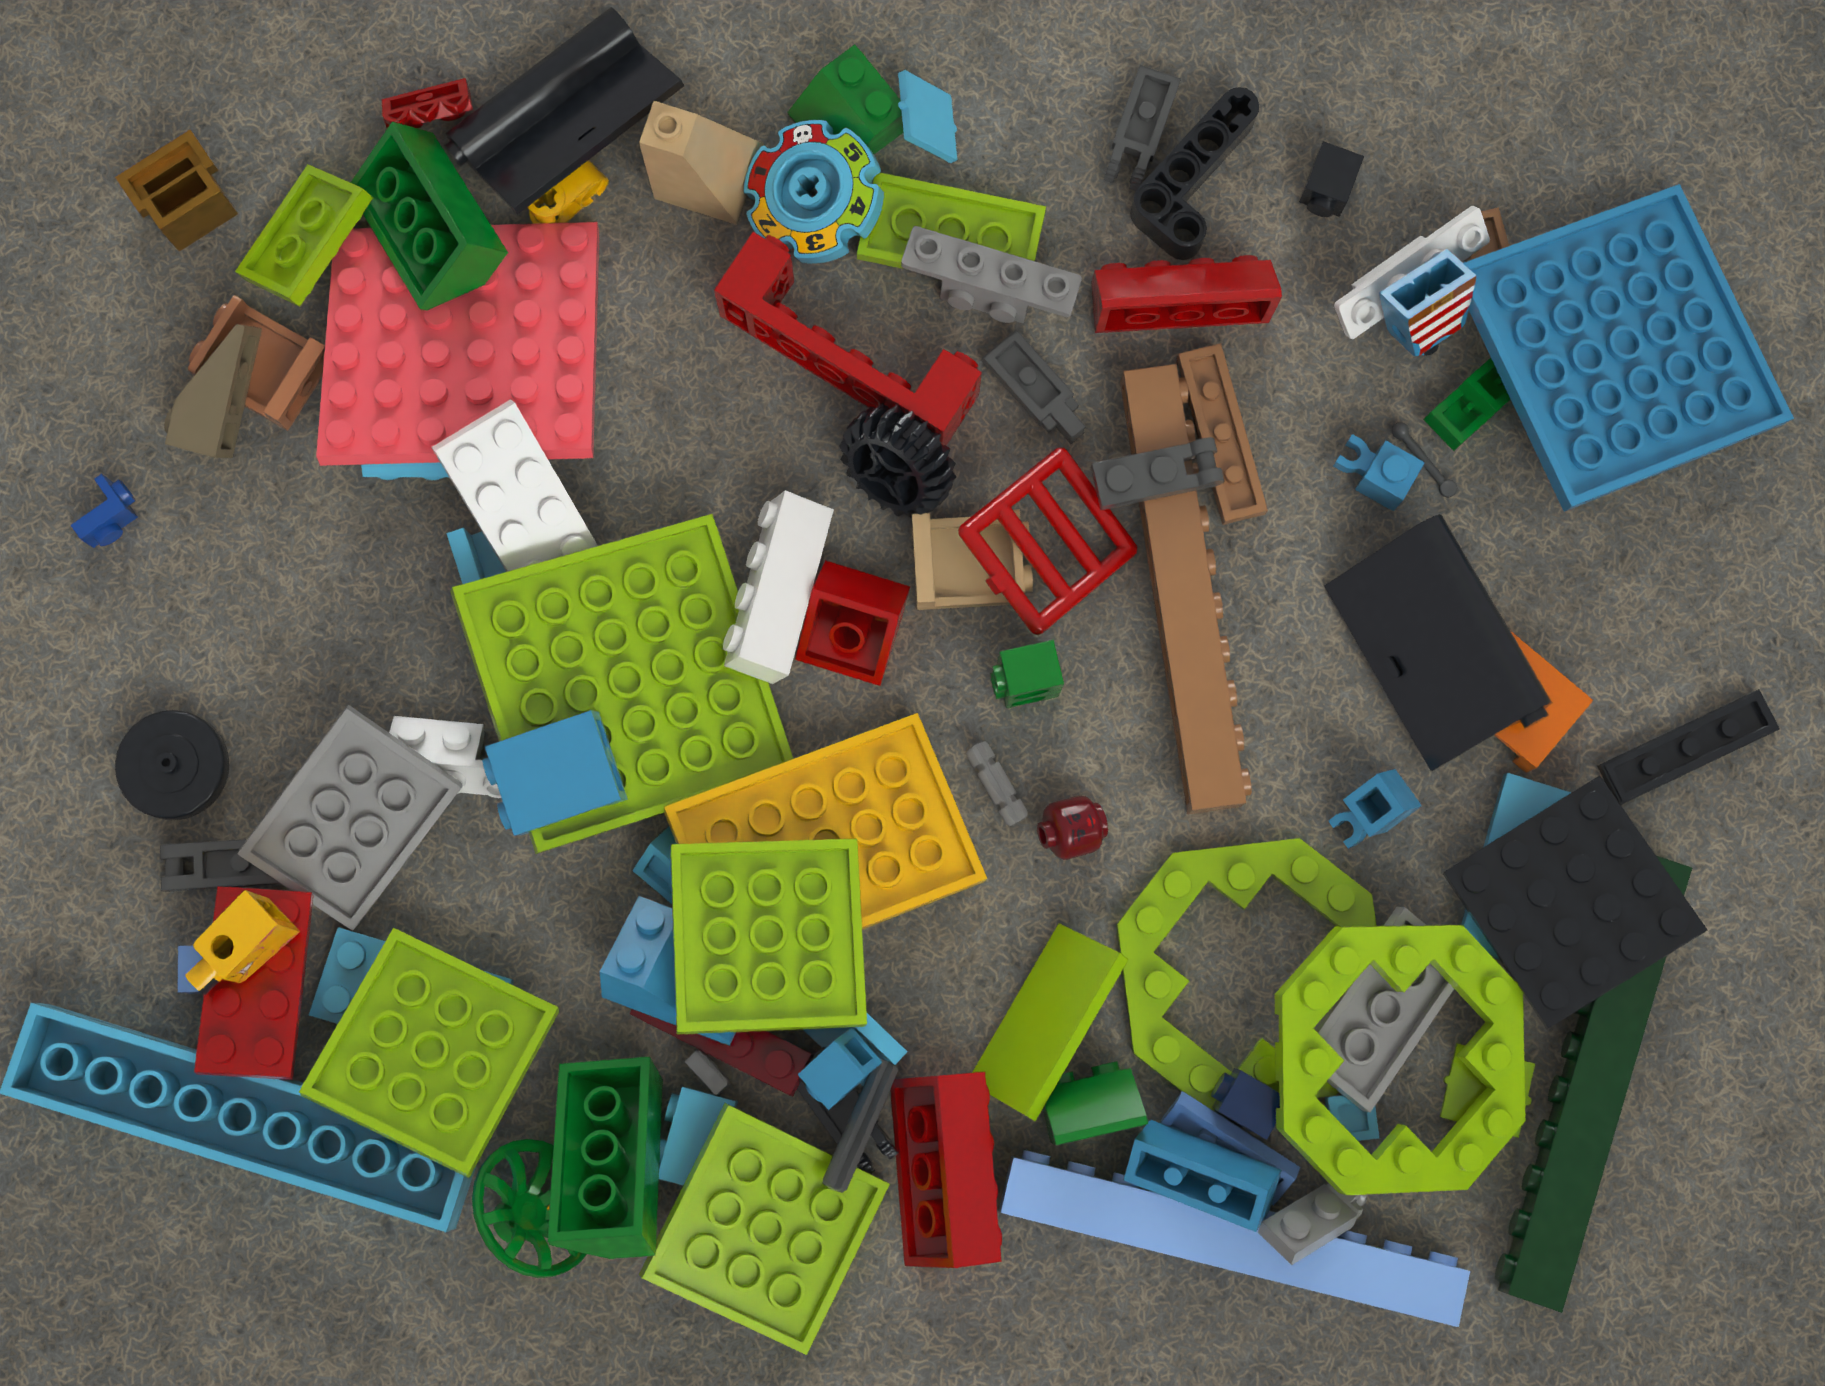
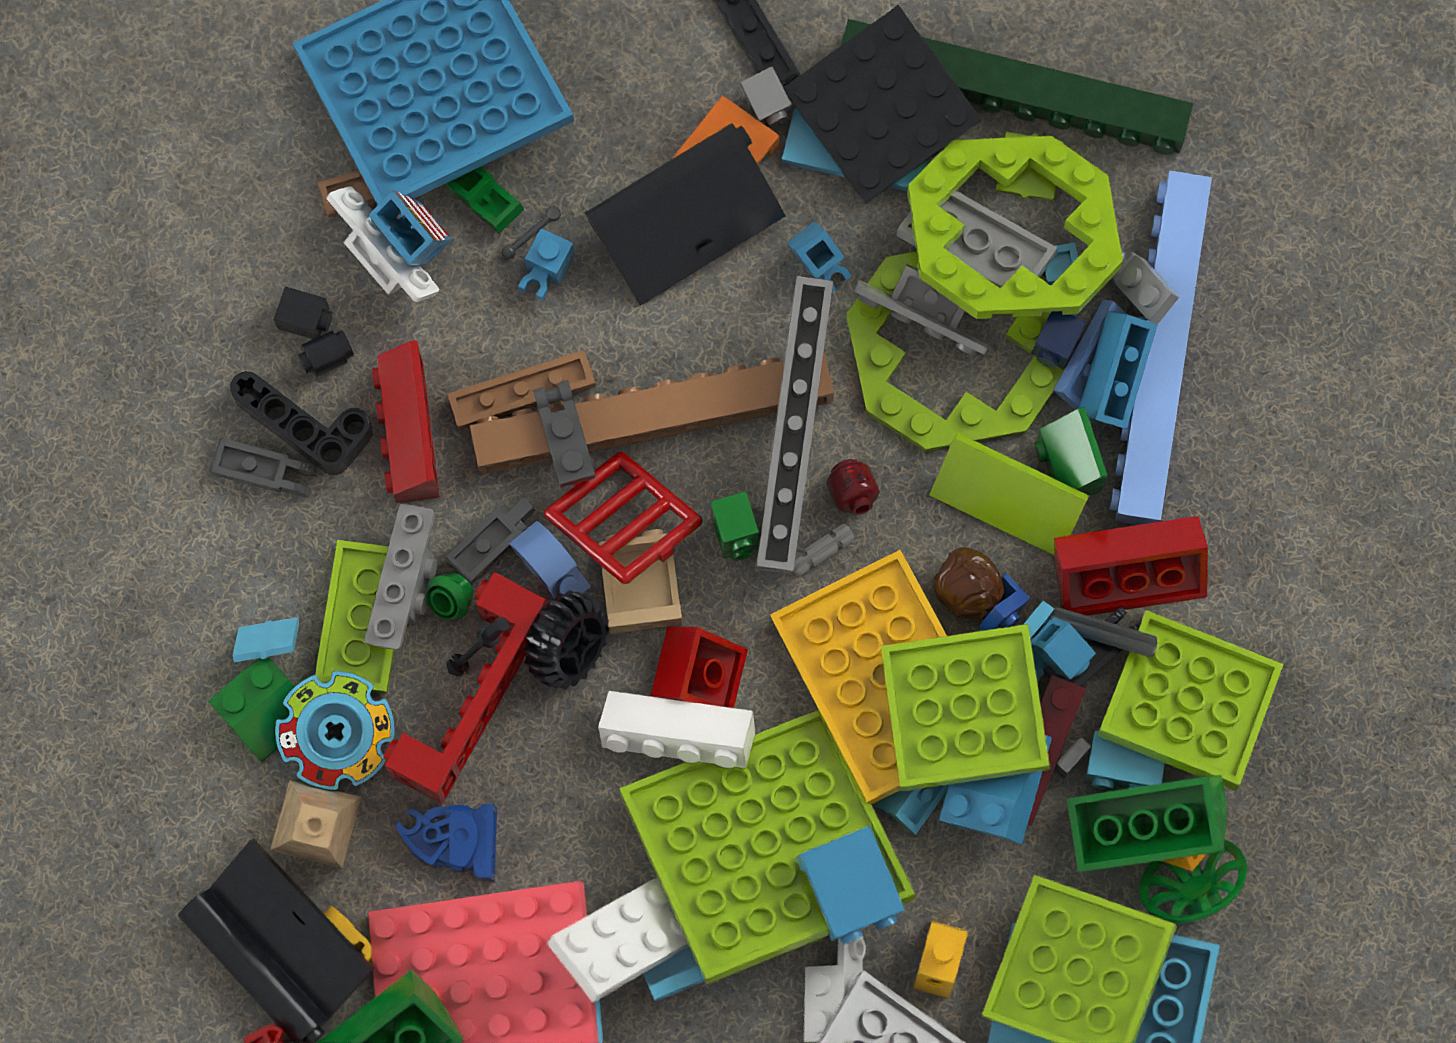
camera: 90 degrees left, 5 degrees down
(478, 887) = (940, 959): none -> yellow torso
(669, 331) = (458, 842): none -> blue piece
(902, 360) = (487, 637): none -> black piece
(913, 1013) = (1007, 611): none -> blue bracket
(936, 961) = (969, 584): none -> reddish brown hair
(968, 332) = (449, 596): none -> green cone
(999, 449) = (548, 561): none -> medium blue brick
(1149, 752) = (794, 425): none -> light grey brick
(1280, 205) = (325, 353): none -> black brick
(1300, 928) = (925, 305): none -> light grey bracket
(1589, 755) = (766, 96): none -> light grey brick

